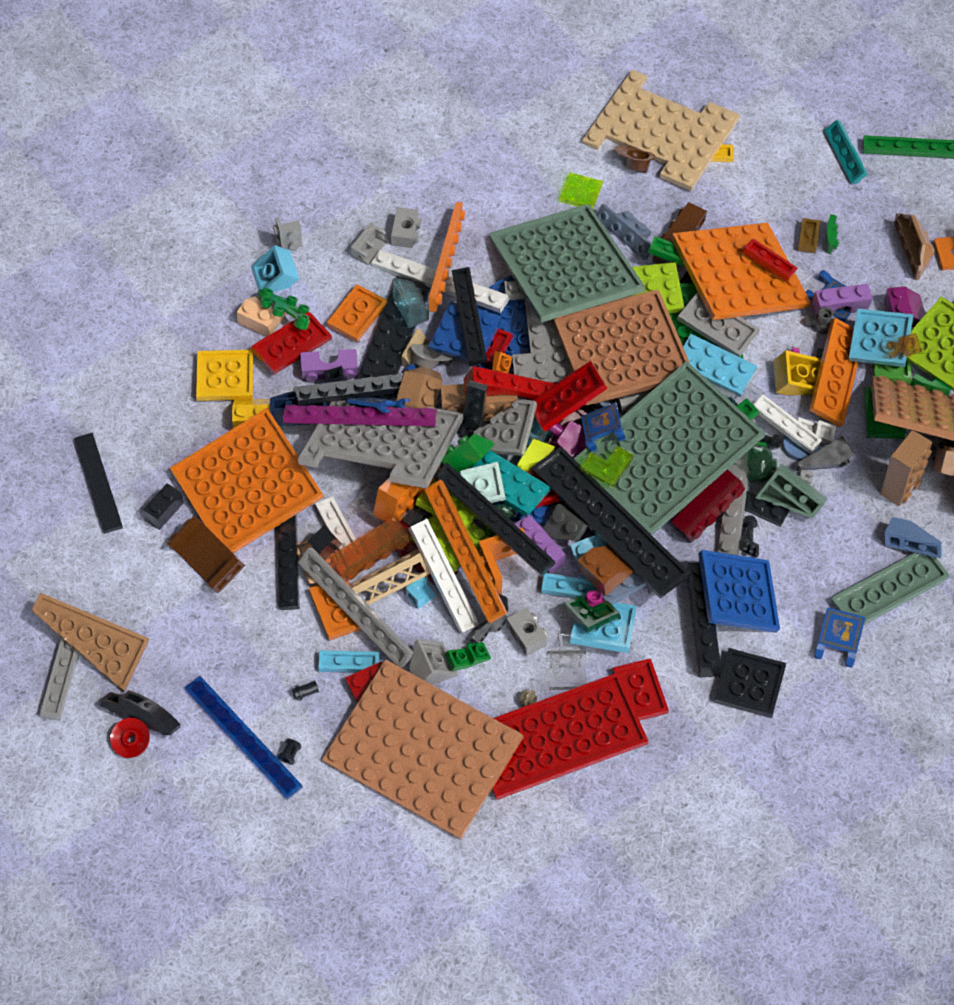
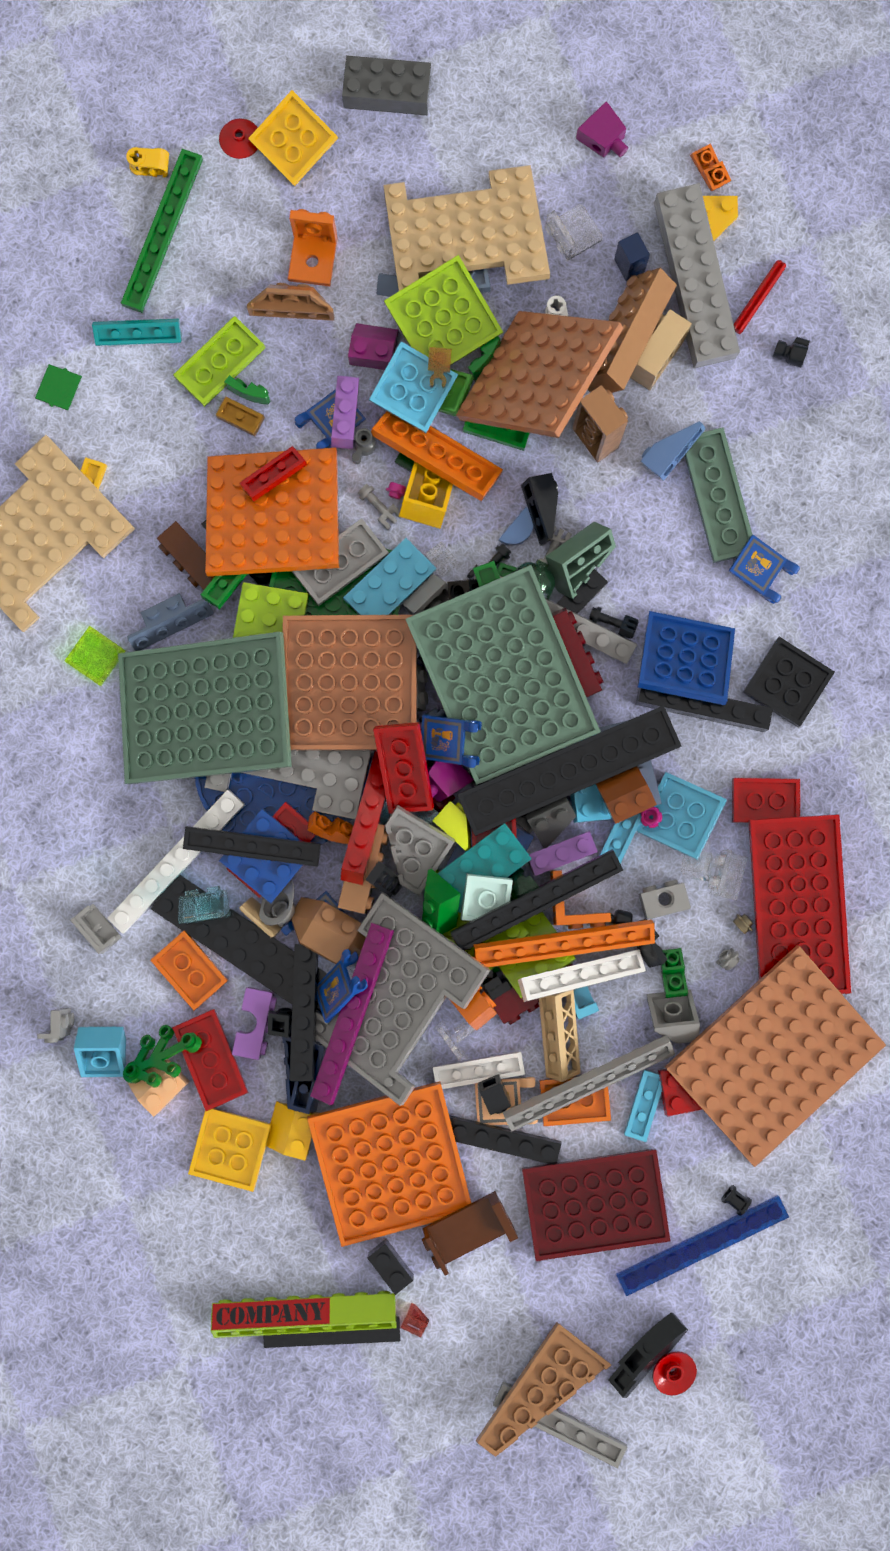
camera: 70 degrees left, 25 degrees up
(108, 456) = (303, 1315): none -> brick
(126, 536) = (416, 1318): none -> clear red slope
(255, 645) = (596, 1204): none -> dark red plate
(305, 690) = (666, 1162): black pin -> none
(369, 549) = (523, 1048): clear orange brick -> none
(405, 227) = (73, 878): light grey brick -> none
(446, 259) = (157, 848): orange plate -> none
(493, 693) = (728, 959): none -> light grey plate
(590, 617) = (676, 831): dark green plate -> none
(608, 470) = (512, 752): clear neon green plate -> none
(635, 158) = (69, 577): reddish brown piece -> none
(781, 116) = (58, 387): none -> green piece
(783, 334) = (366, 493): none -> light grey hinge
(787, 424) = (489, 532): white tile -> none
(821, 429) = (499, 504): white slope -> none
(850, 210) = (221, 356): none -> lime plate

